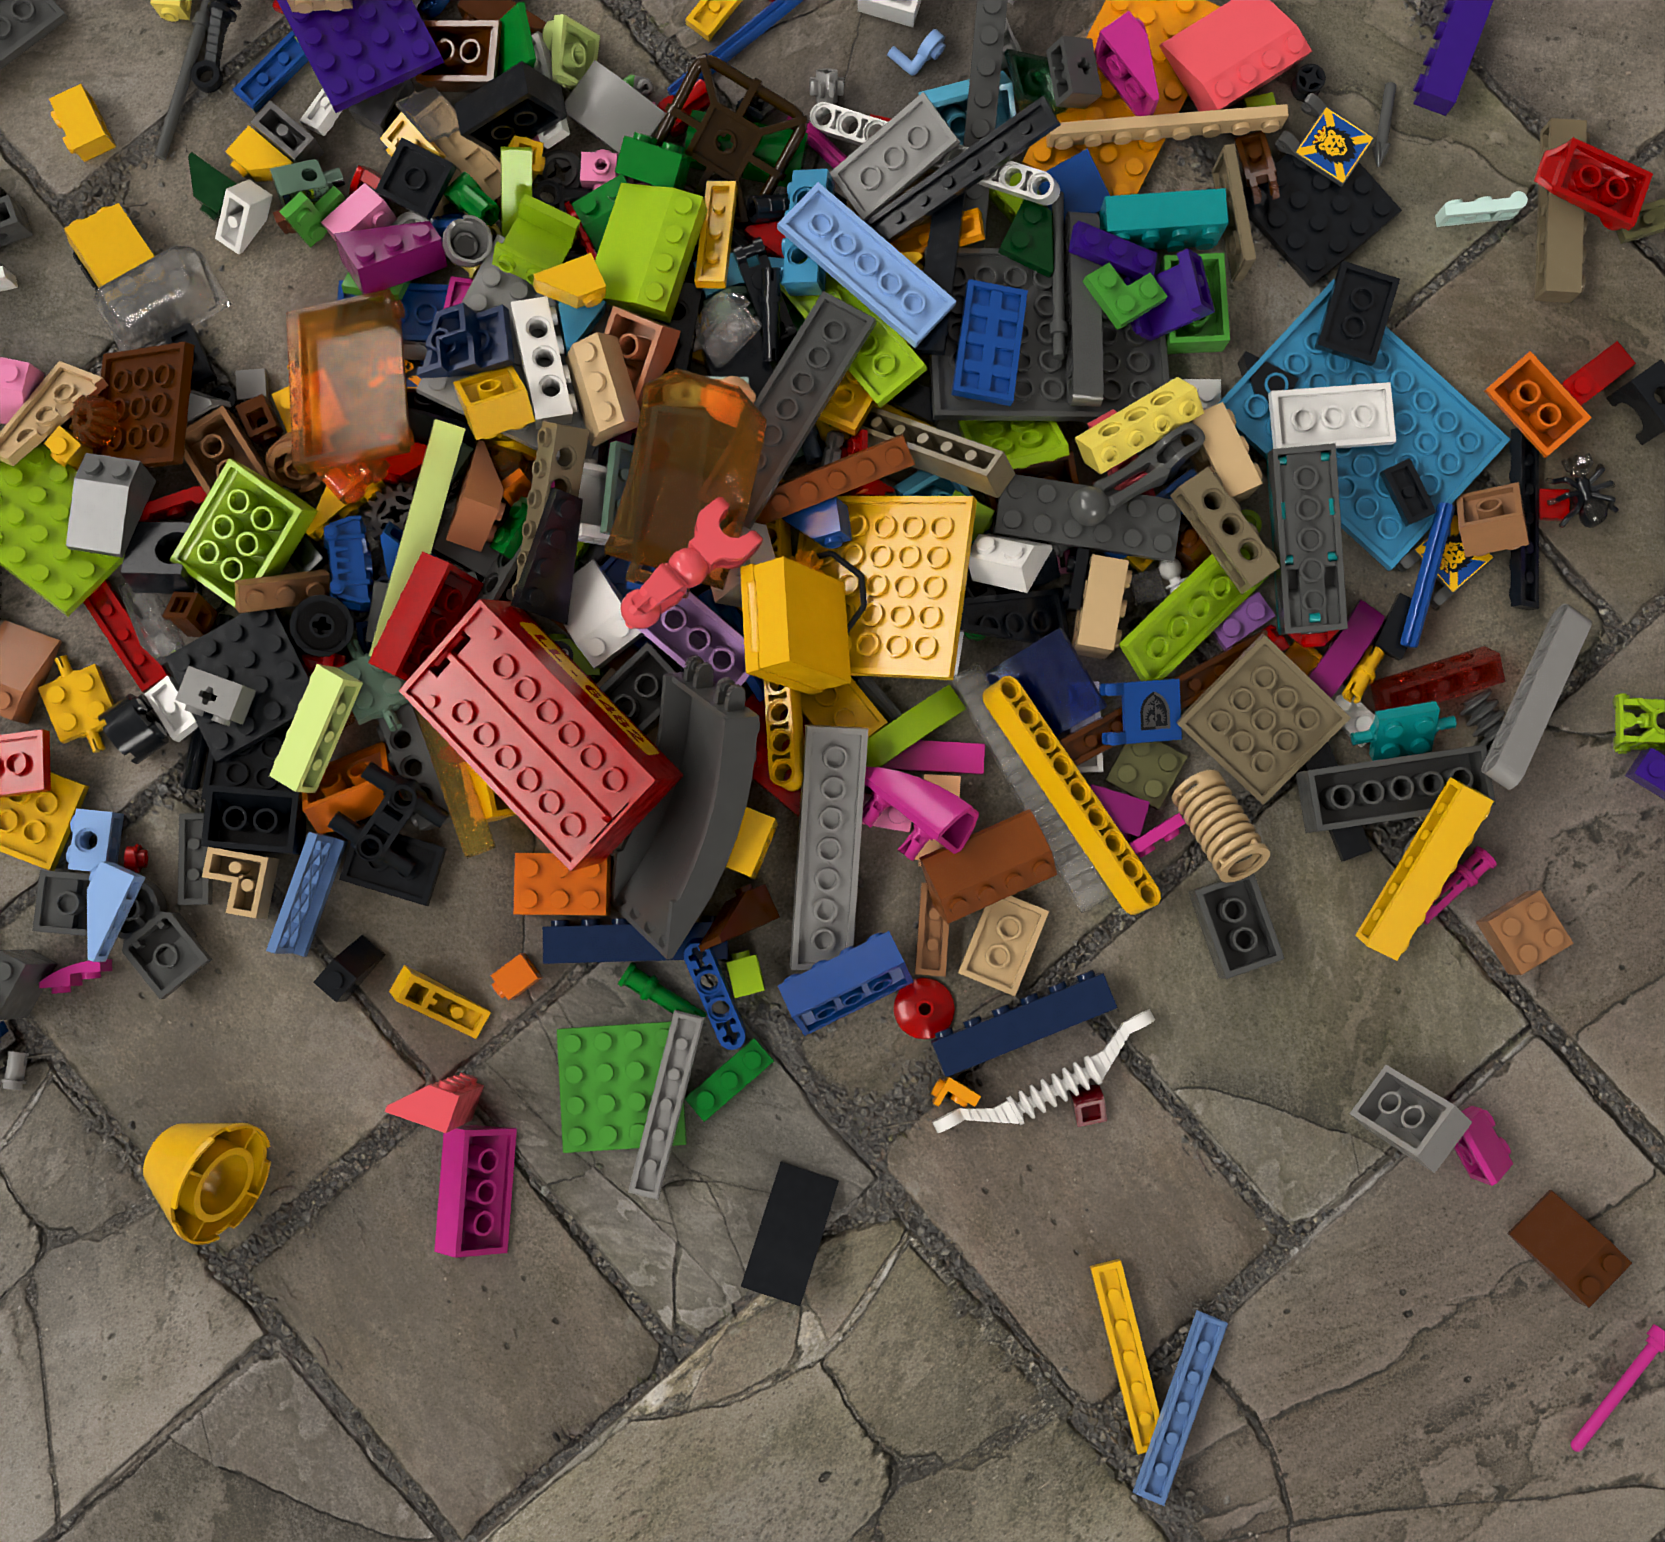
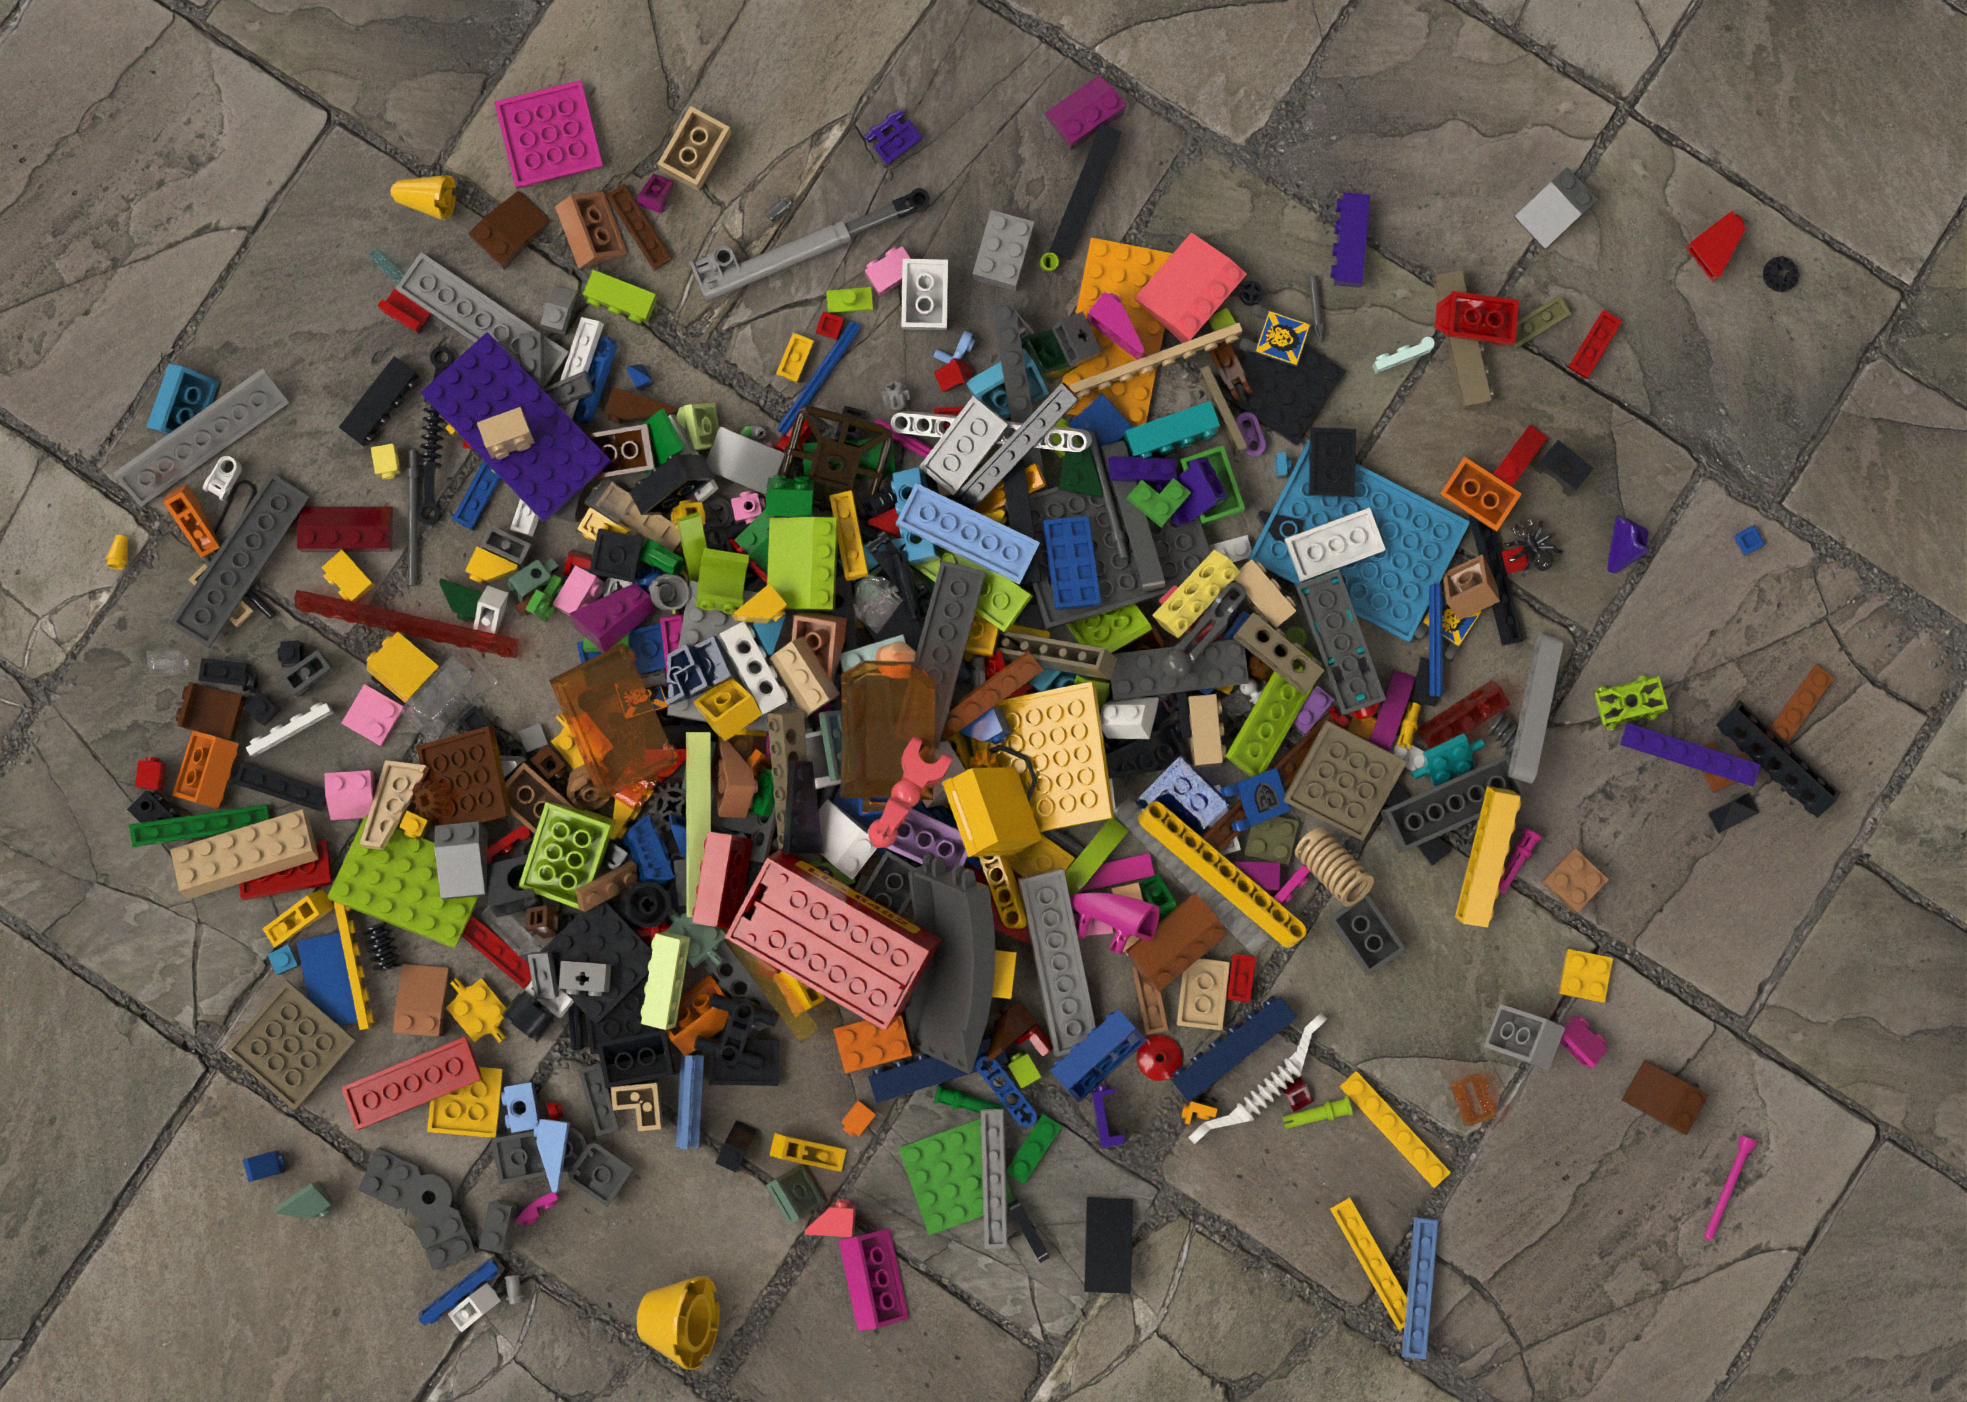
camera: 20 degrees left, 0 degrees up
(61, 302) = (372, 715): none -> bright pink plate
(102, 66) = (345, 529): none -> dark red slope
(136, 200) = (407, 624): none -> clear red plate
(166, 679) = (543, 975): none -> flat silver plate
(408, 1050) = (795, 1194): none -> sand green bracket
(692, 1184) = (1028, 1230): none -> black beam
(775, 940) = (1038, 1039): none -> red tile
(826, 1096) = (1097, 1098): none -> dark purple panel
(905, 80) = (953, 374): none -> red tile
(981, 796) = (1158, 894): none -> green slope
(1058, 936) = (1241, 978): none -> red plate
(1122, 1139) = (1329, 1110): none -> lime pin
(1203, 1188) = (1394, 1129): none -> yellow plate
(1265, 257) = (1251, 434): none -> medium lavender plate
(1289, 303) = (1283, 465): none -> dark azure plate
(1332, 1189) = (1487, 1104): none -> clear orange window
(1407, 492) = (1404, 584): black plate -> none
(1504, 1059) = (1585, 975): none -> yellow plate

